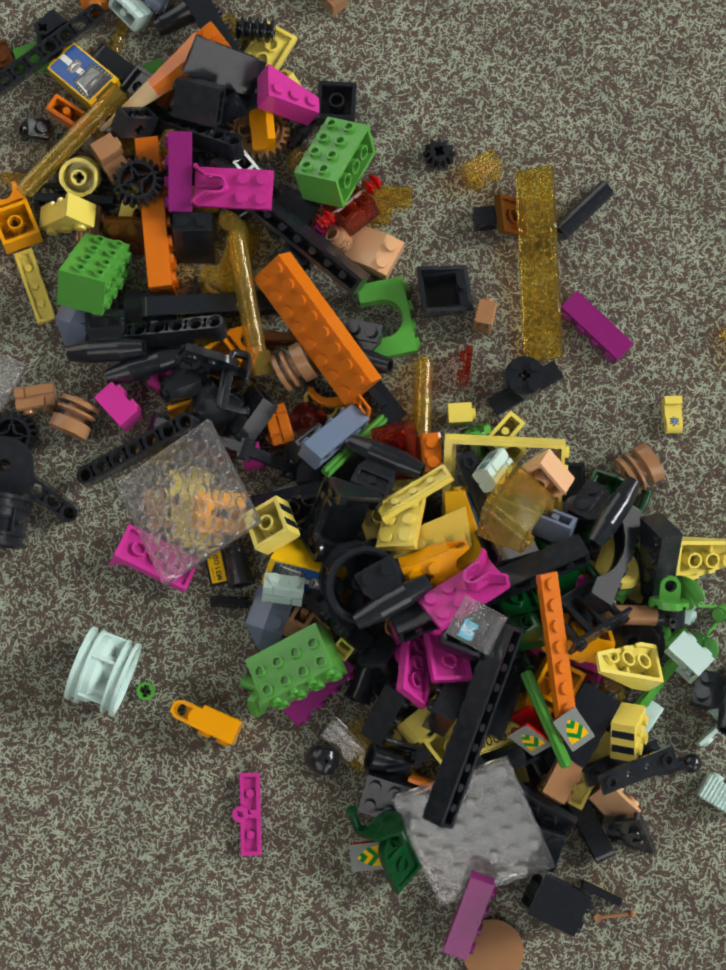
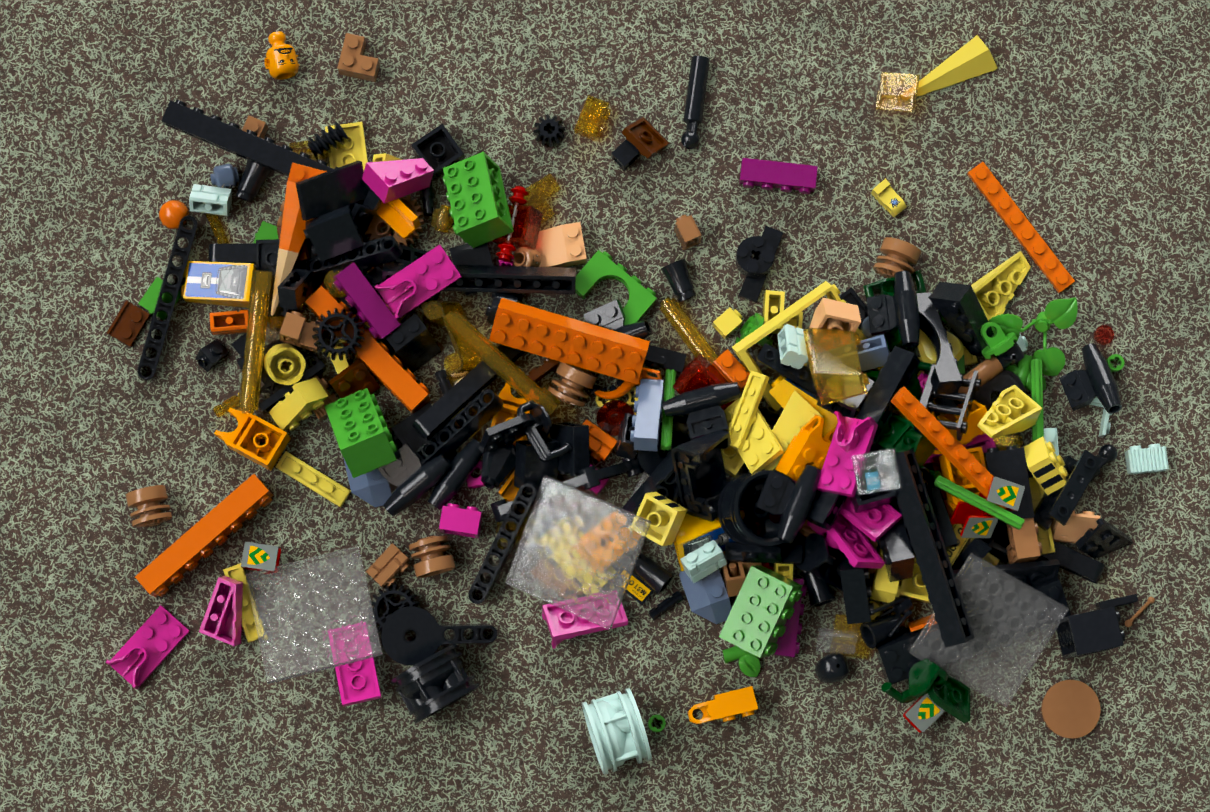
camera: 40 degrees left, 0 degrees up
(48, 25) = (156, 263): black piece -> none
(249, 814) = (810, 752): dark pink hinge -> none
(444, 290) = (641, 236): black piece -> none
(448, 350) = (679, 280): none -> black plant
(463, 374) = (705, 289): clear red wing -> none
(469, 914) = (1034, 694): magenta brick -> none
(539, 263) = (696, 159): clear yellow plate -> none
(689, 656) = (1045, 374): light aqua brick -> none

